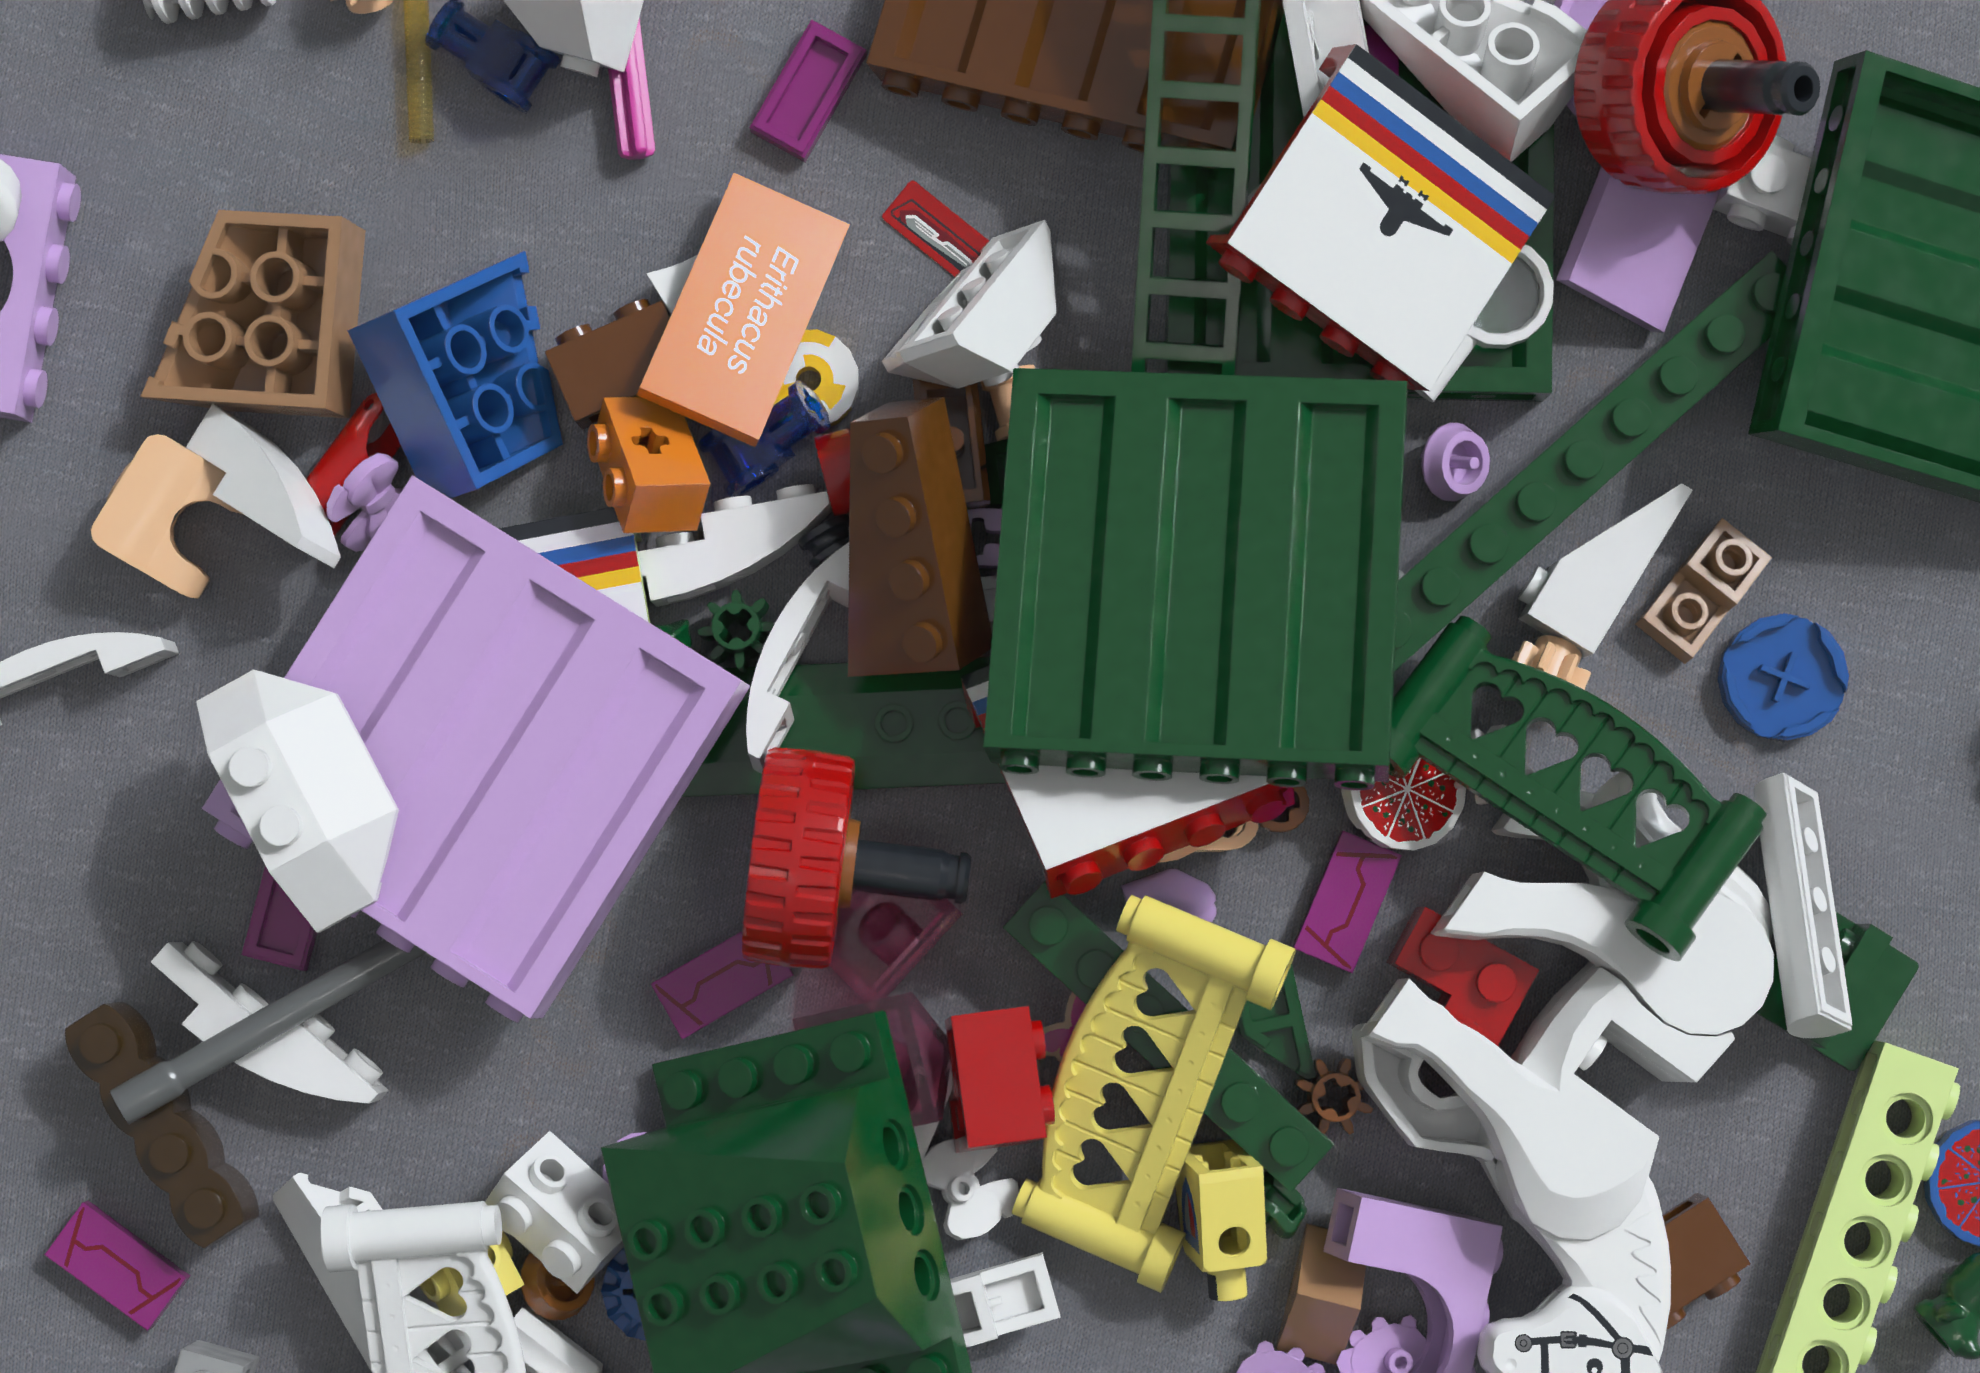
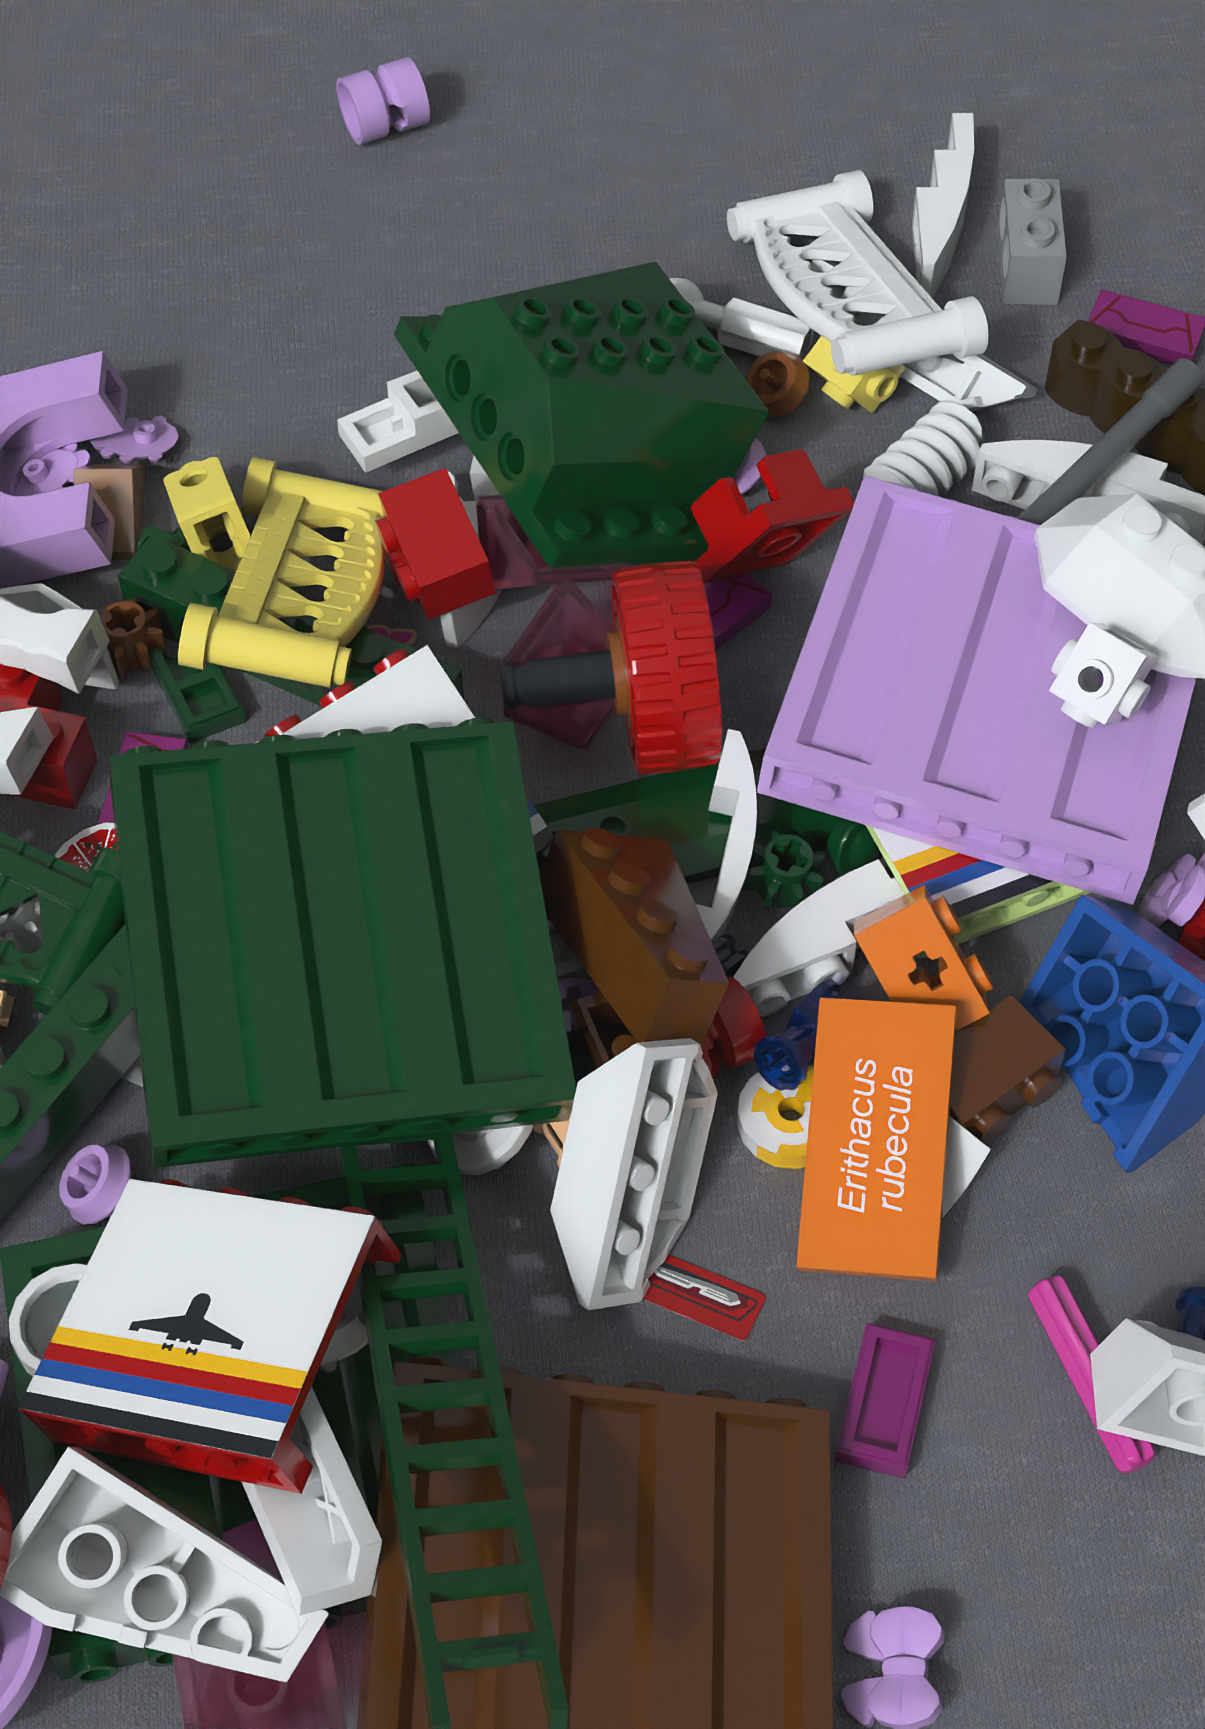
camera: 165 degrees right, 30 degrees down
(382, 671) = (1123, 668): none -> white brick
(435, 1112) = (932, 451): none -> white piece
(559, 1211) = (801, 411): white brick -> none
(633, 1019) = (774, 530): none -> red panel

